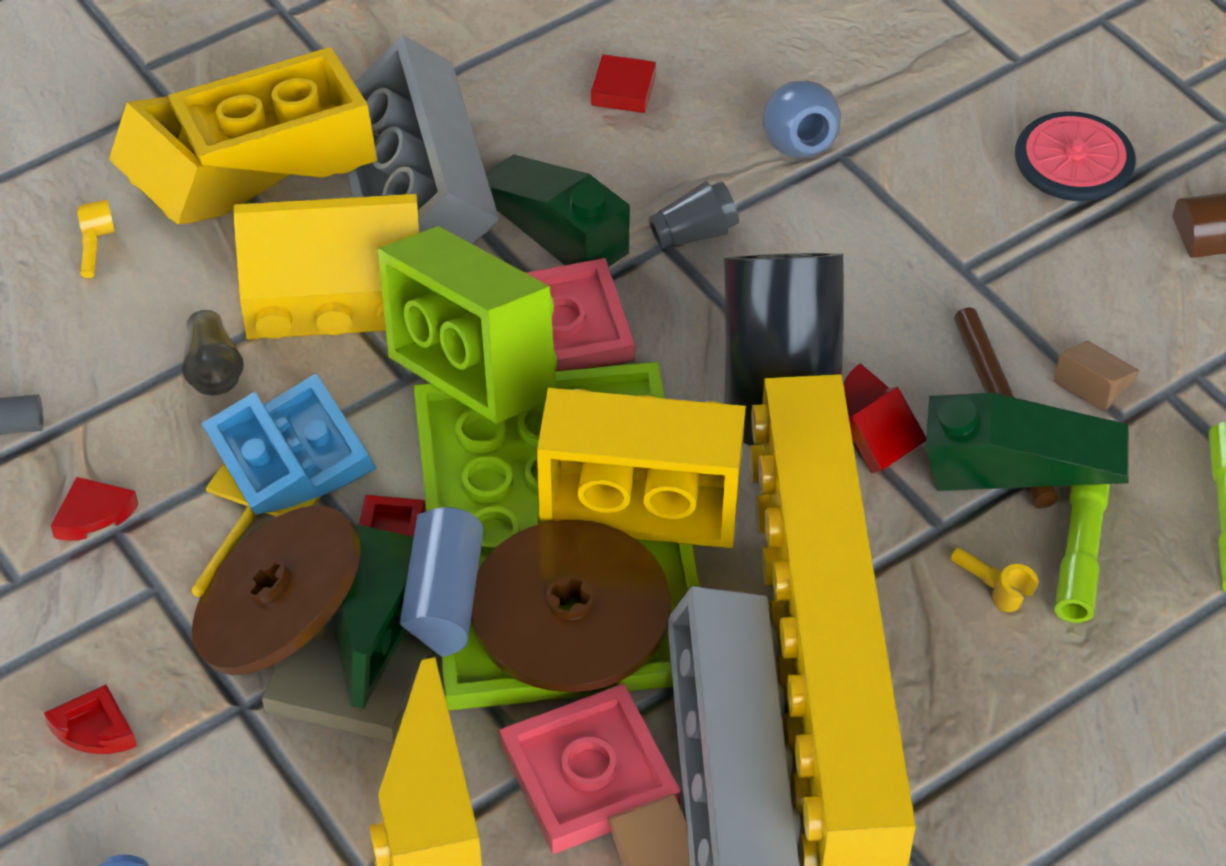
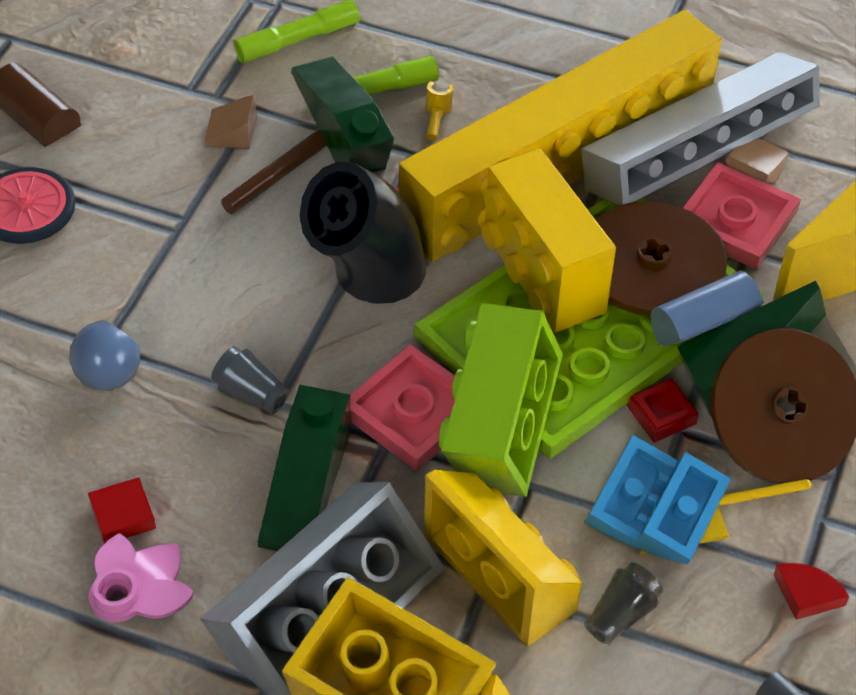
camera: 125 degrees left, 0 degrees up
(539, 62) = (141, 576): none -> bright pink plate

